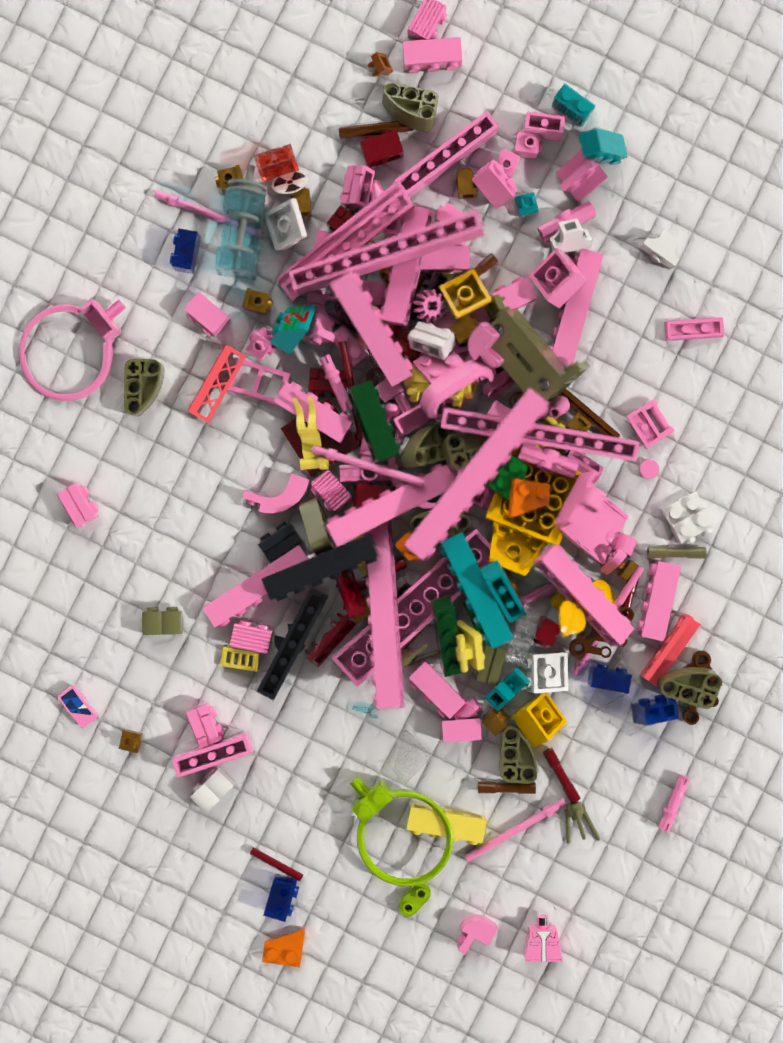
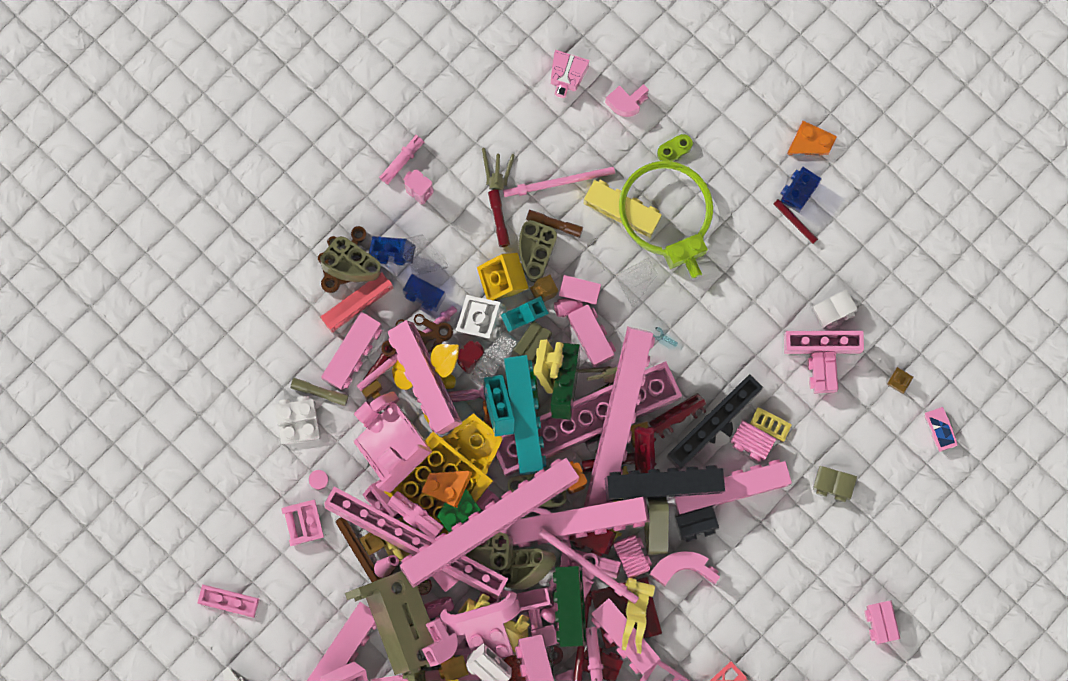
camera: 165 degrees left, 10 degrees down
(650, 782) = (418, 186): none -> bright pink brick

